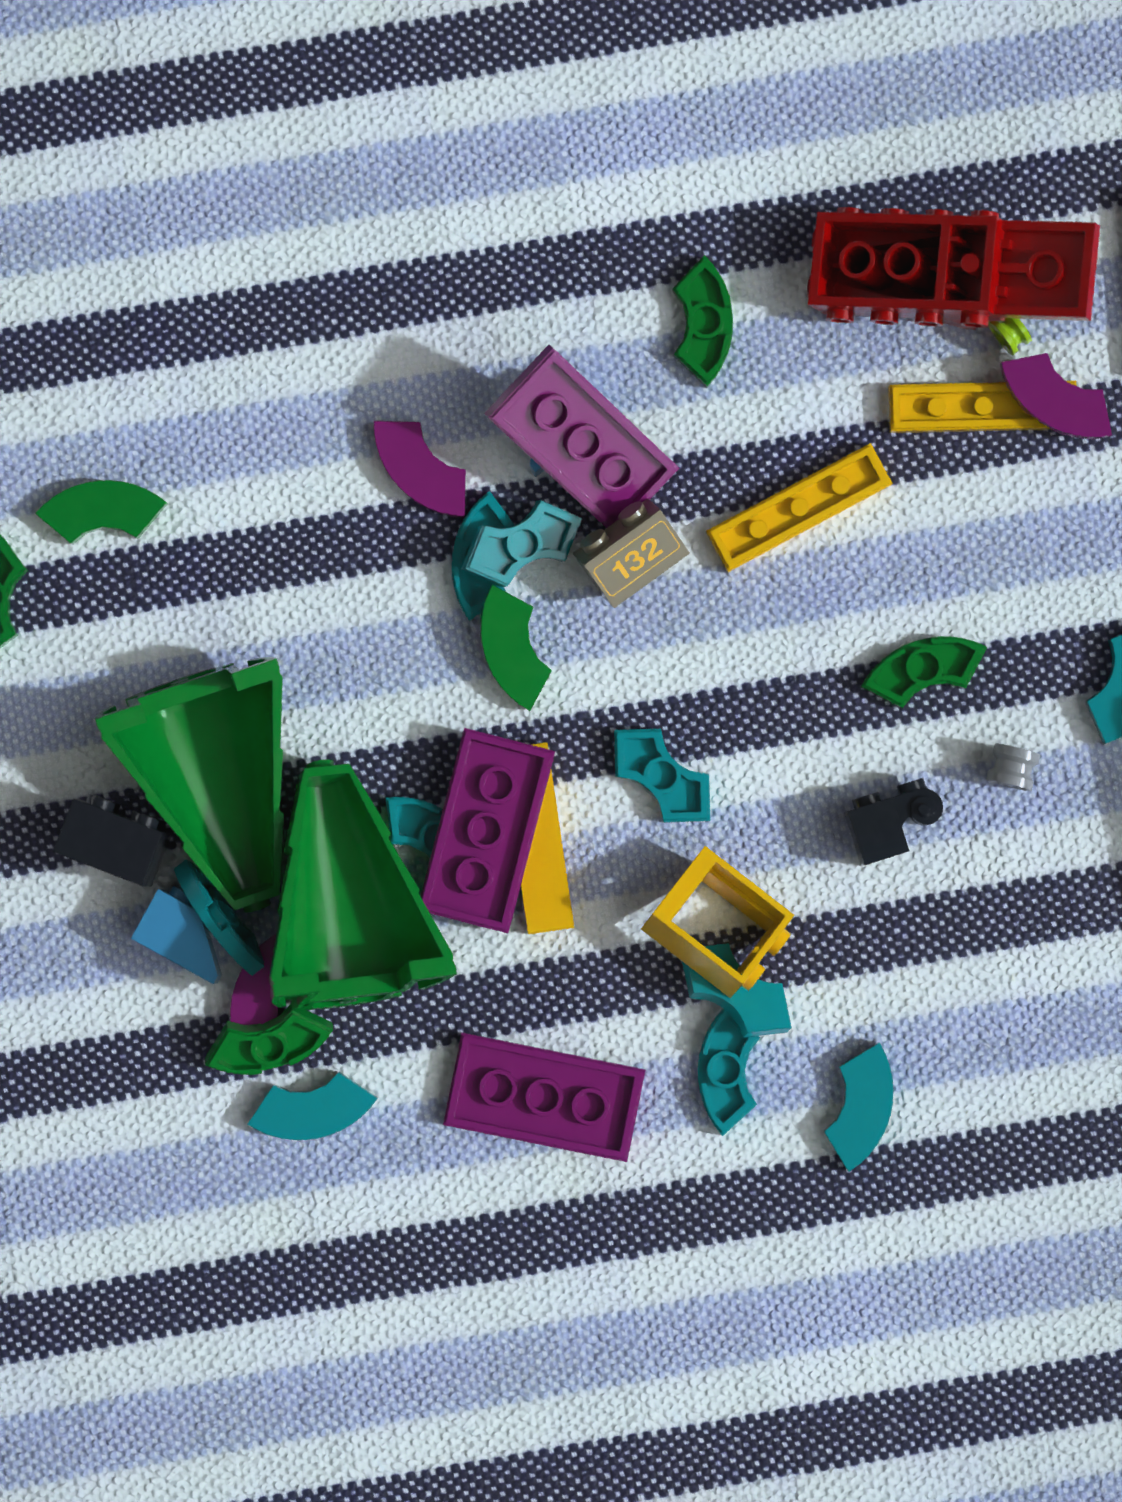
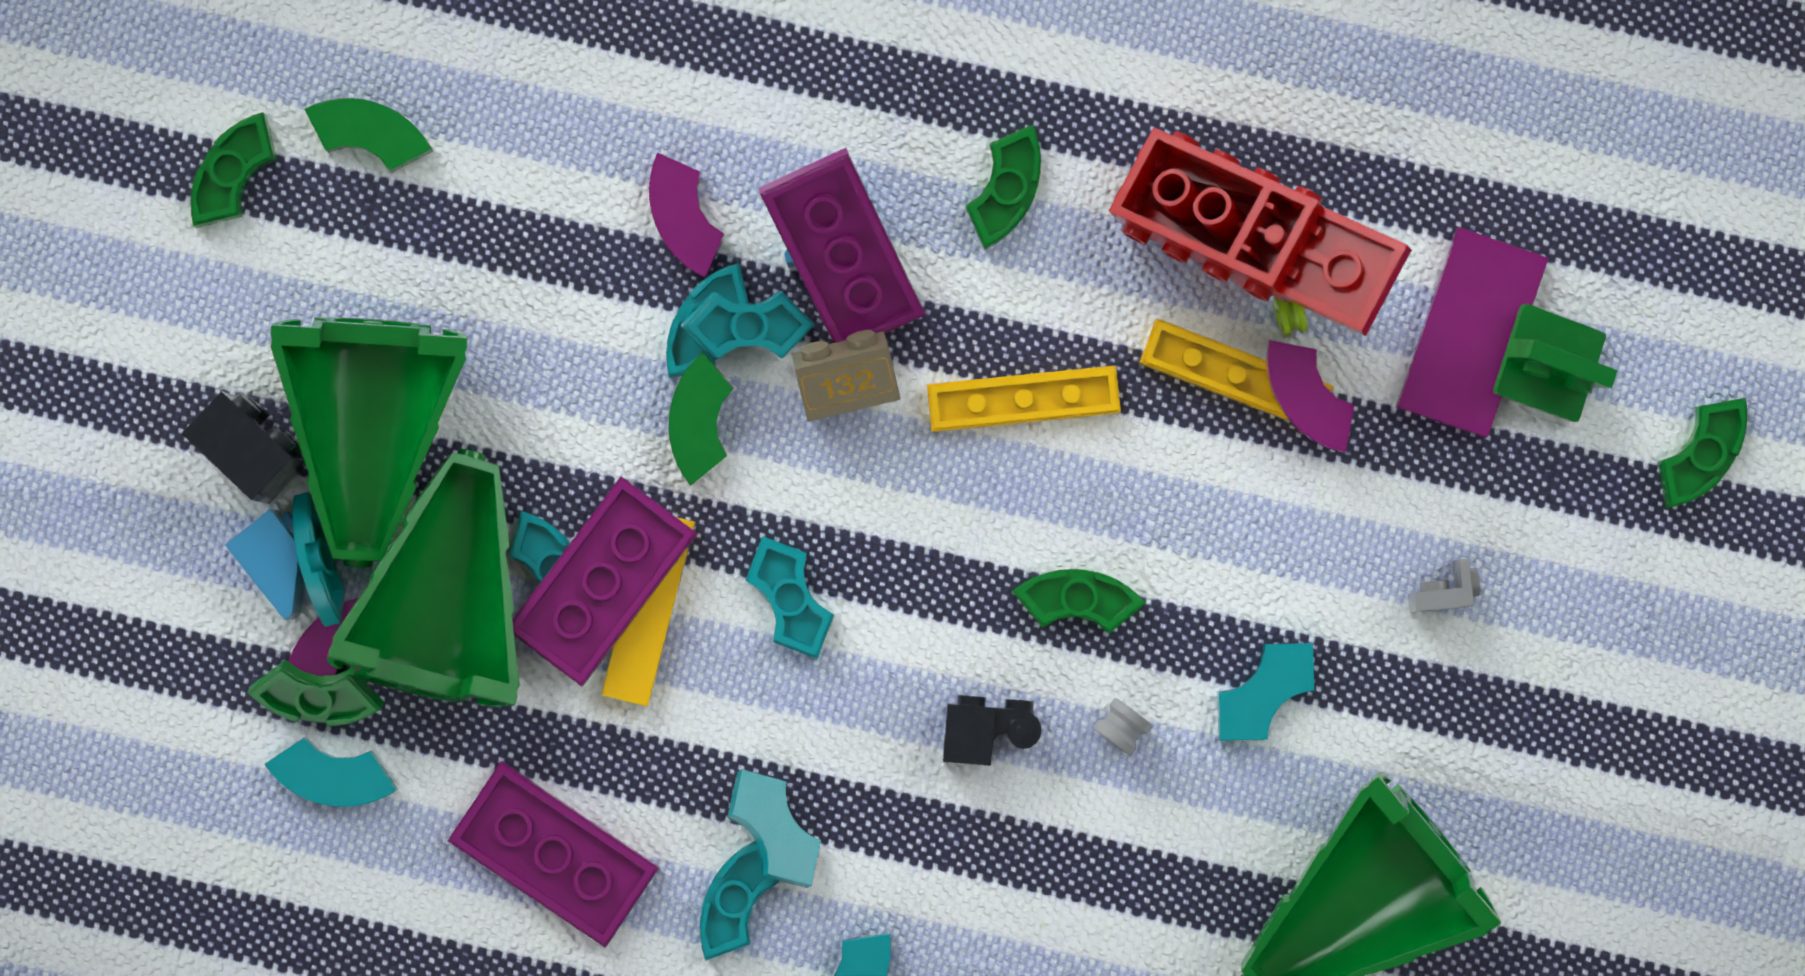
camera: 25 degrees right, 0 degrees up
(741, 894) = (818, 742): yellow window -> none

